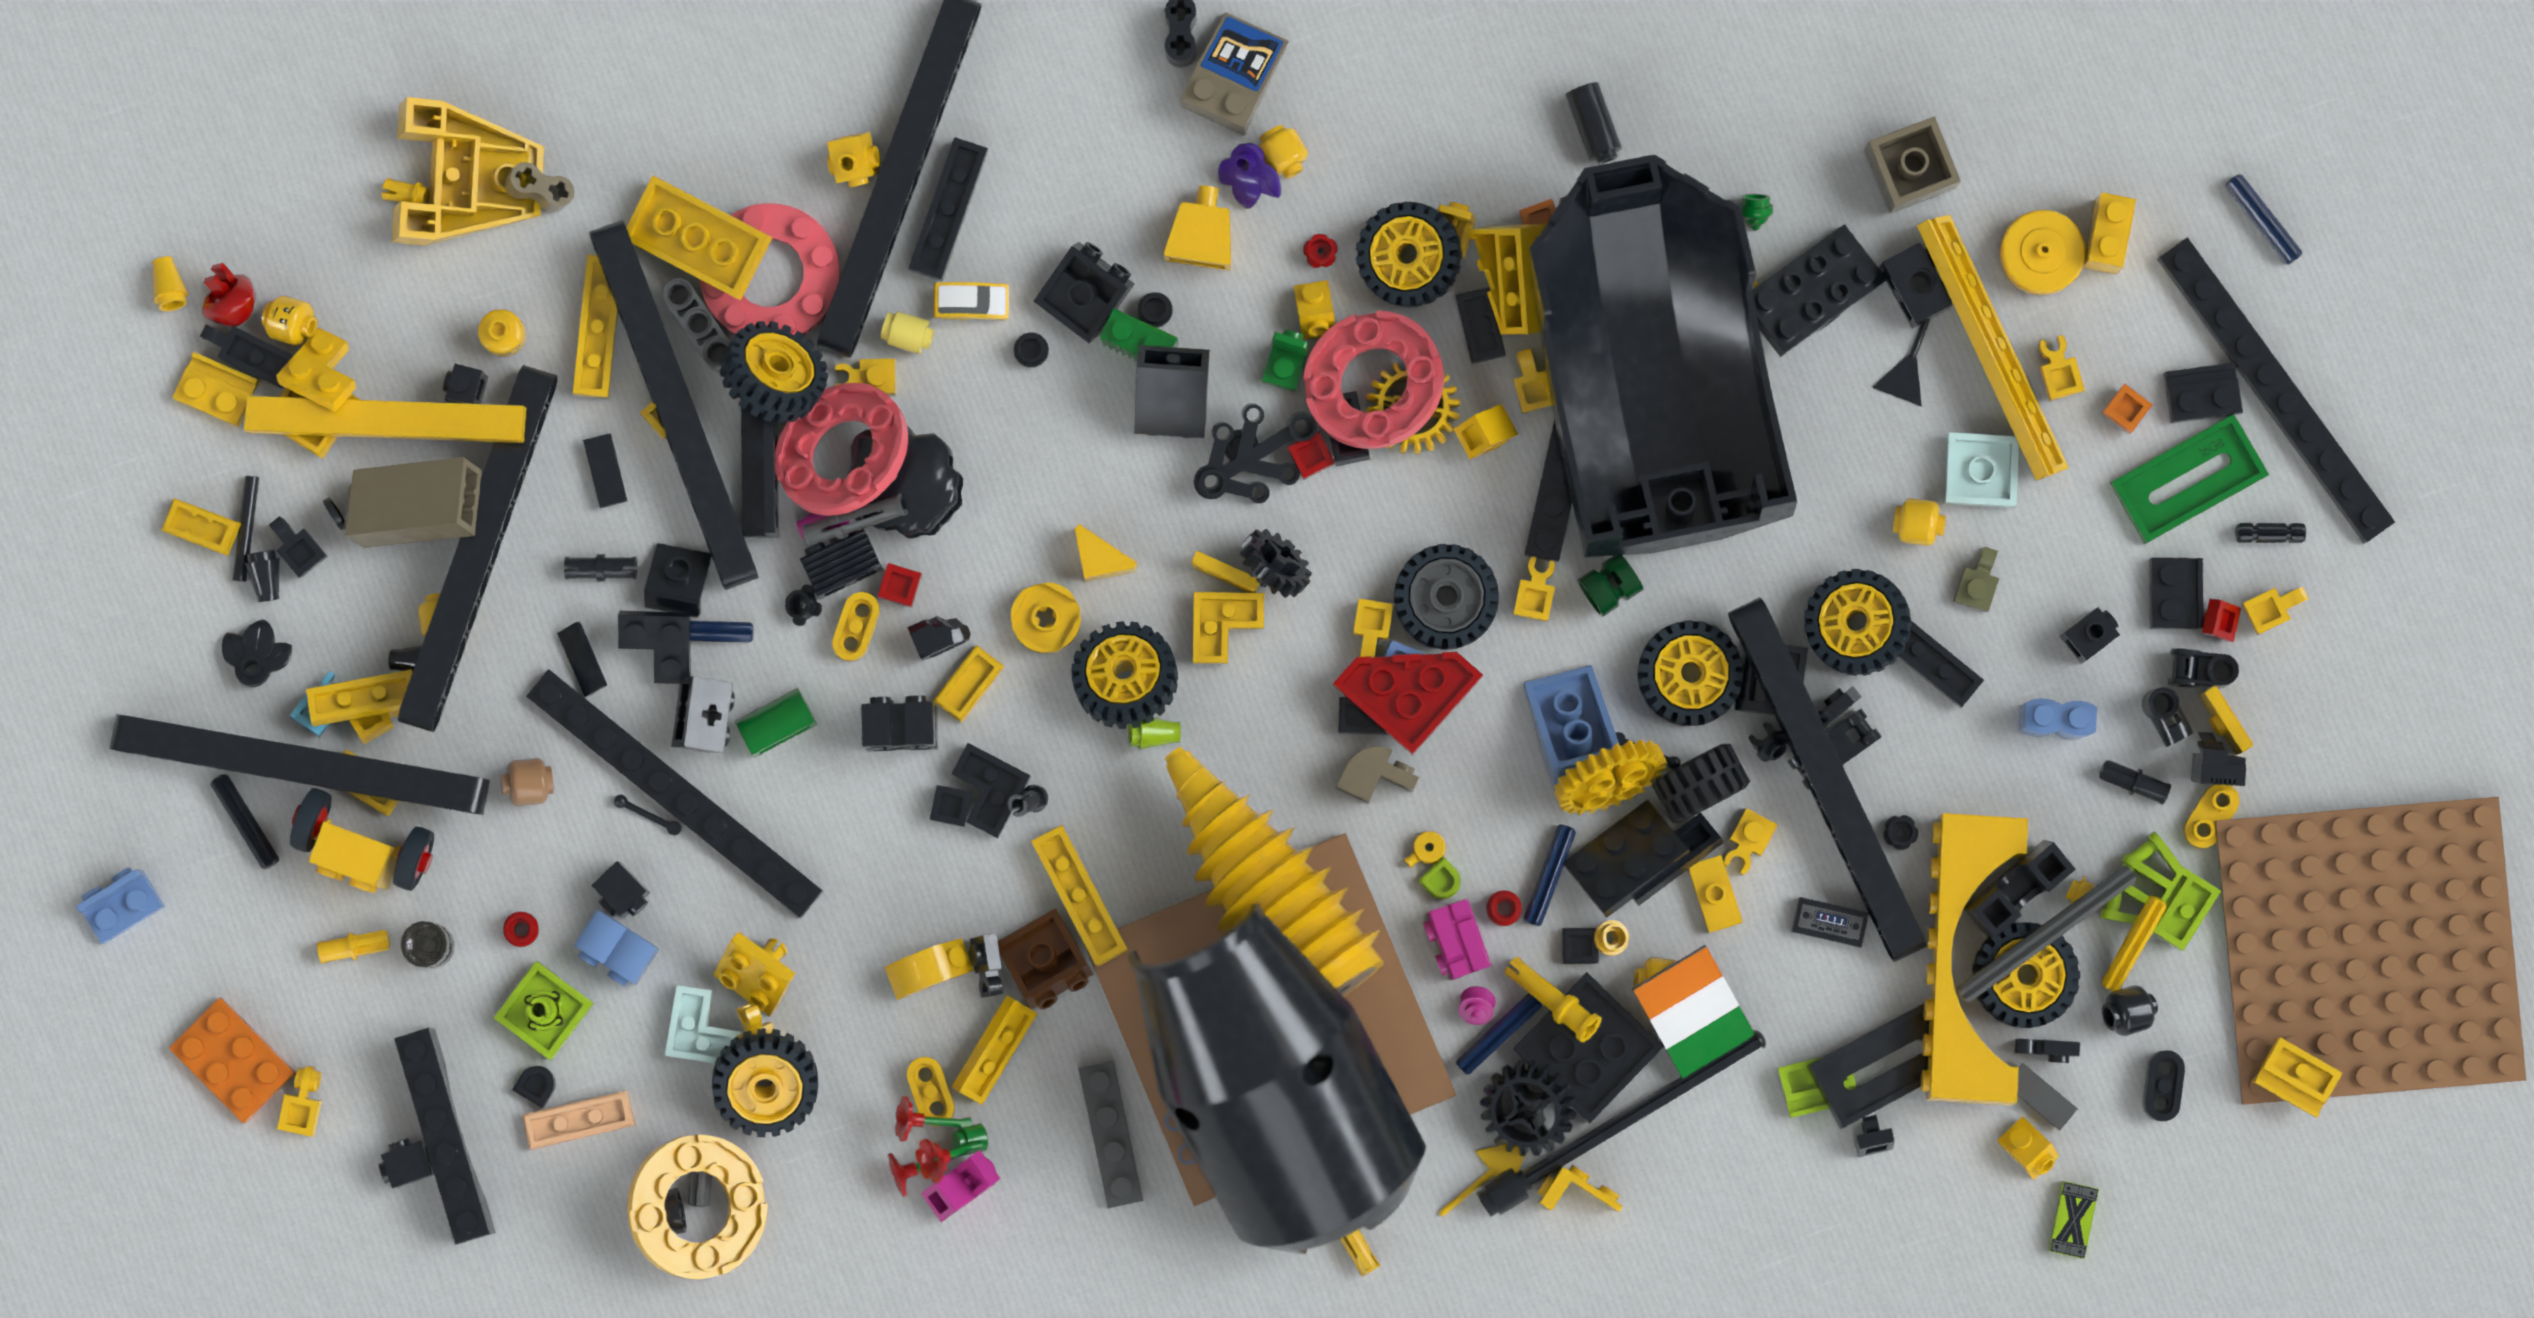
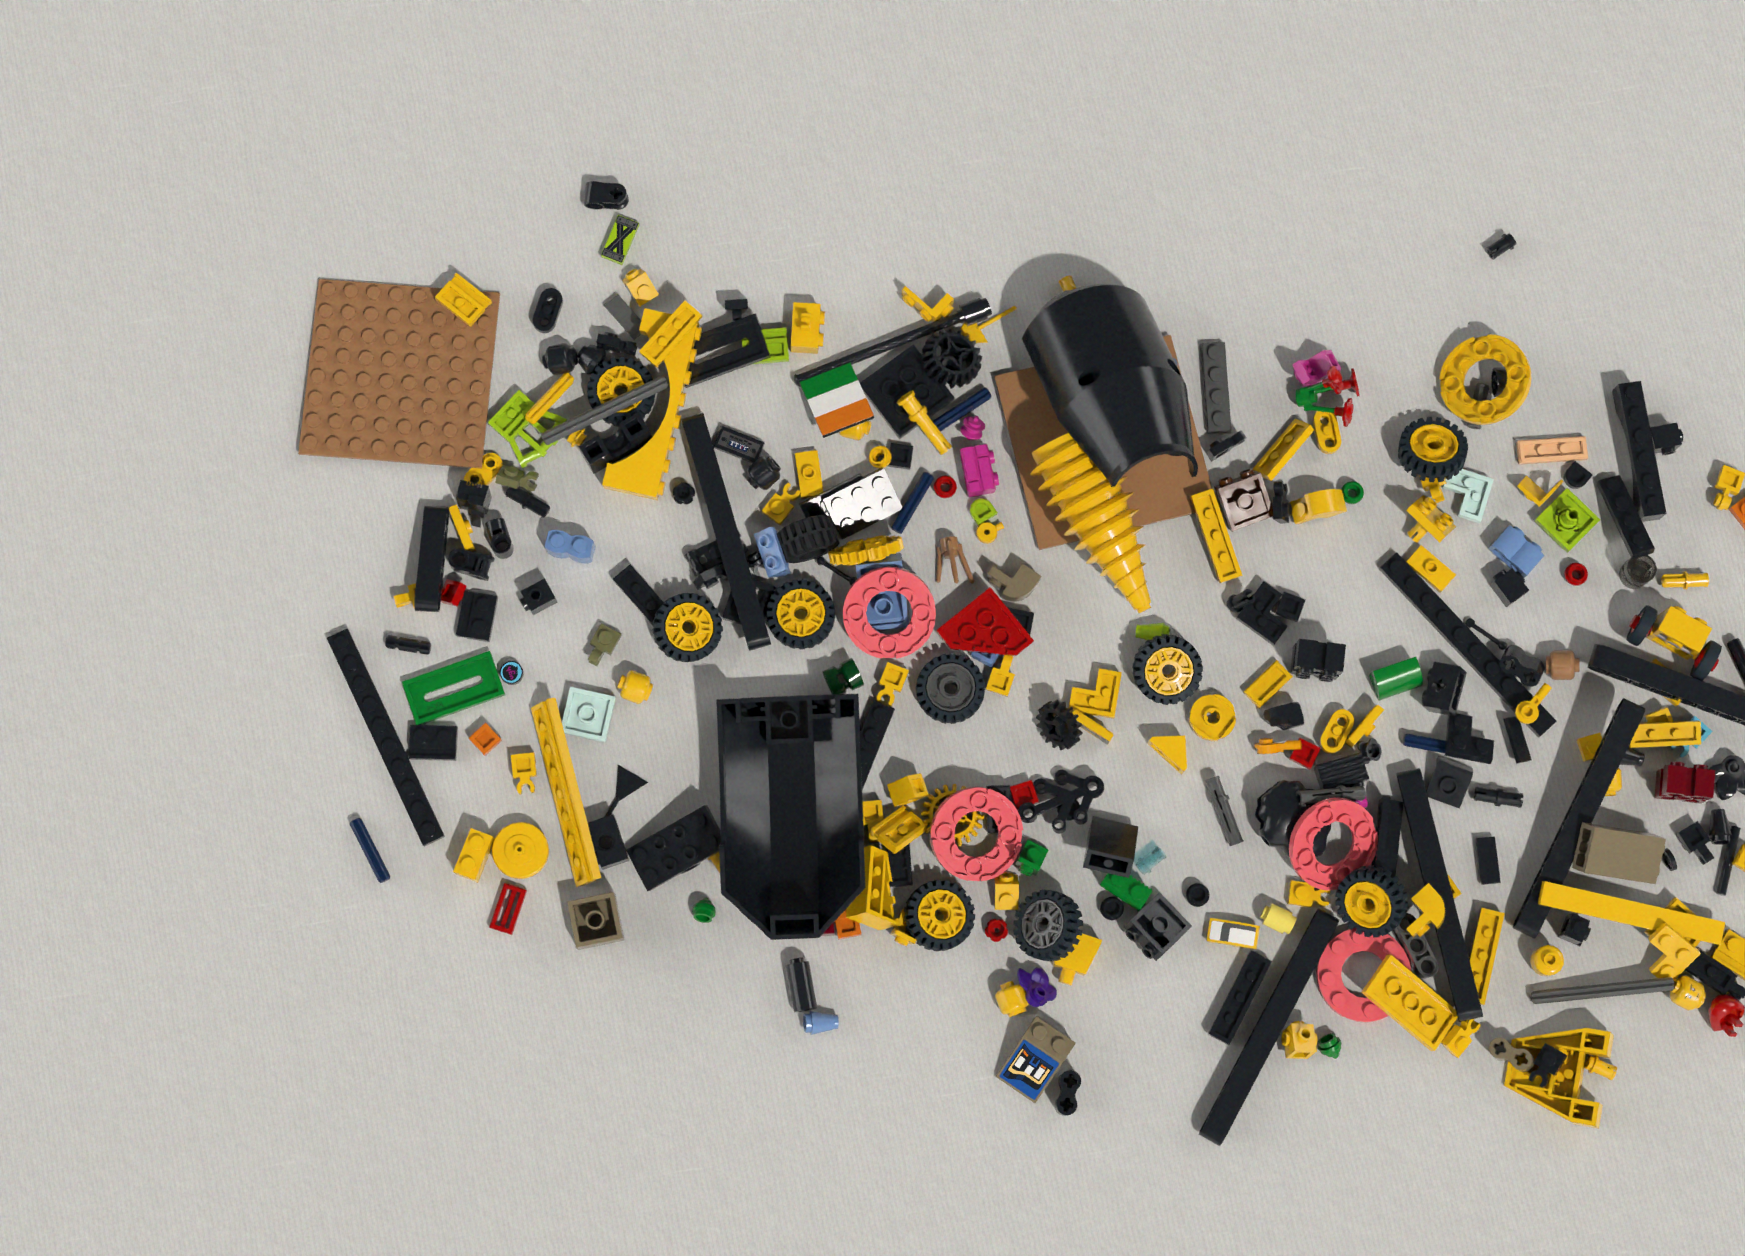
camera: 175 degrees left, 5 degrees down
(324, 626) = (1685, 783): none -> dark red brick
(414, 303) = (1602, 990): none -> dark grey axle
(455, 1025) = (1625, 517): none -> black plate
(472, 668) = (1588, 745): none -> yellow plate
(483, 183) = (1549, 1061): none -> black plate
(573, 699) = (1528, 711): none -> yellow plate
(587, 769) = (1522, 665): none -> black axle
(598, 1046) = (1534, 492): none -> yellow bracket
(617, 201) = (1458, 1037): none -> yellow plate
(683, 374) = (1433, 911): none -> yellow brick
(744, 901) = (1430, 569): none -> yellow plate
(806, 161) = (1330, 1045): none -> green plate
(814, 639) = (1365, 727): none -> yellow plate
(870, 993) = (1358, 490): none -> green plate
(956, 586) = (1267, 746): none -> light orange plate
(1015, 492) = (1224, 810): none -> dark grey pin
(1091, 1037) = (1221, 447): none -> black plate
(1108, 389) = (1150, 860): none -> clear light blue pin
(1247, 261) = (1063, 921): none -> wheel
(1481, 811) = (950, 549): none -> medium nougat plant
(1489, 369) = (898, 829): none -> yellow plate
(1557, 75) = (819, 1022): none -> medium blue cone
(1566, 647) = (896, 644): none -> coral plate
(1753, 756) = (771, 553): none -> medium blue bracket
(1759, 1123) = (806, 327): none -> yellow brick
(1785, 882) = (763, 473): none -> black head
(1969, 1064) = (670, 333): none -> yellow plate
(2047, 137) = (501, 928): none -> red tile
(2082, 1019) = (591, 357): none -> black cone
(2107, 516) = (511, 672): none -> black tile
(2115, 1285) = (602, 195): none -> black piece
(2163, 812) = (513, 478): none -> olive plate
(2263, 663) = (431, 559): none -> black beam

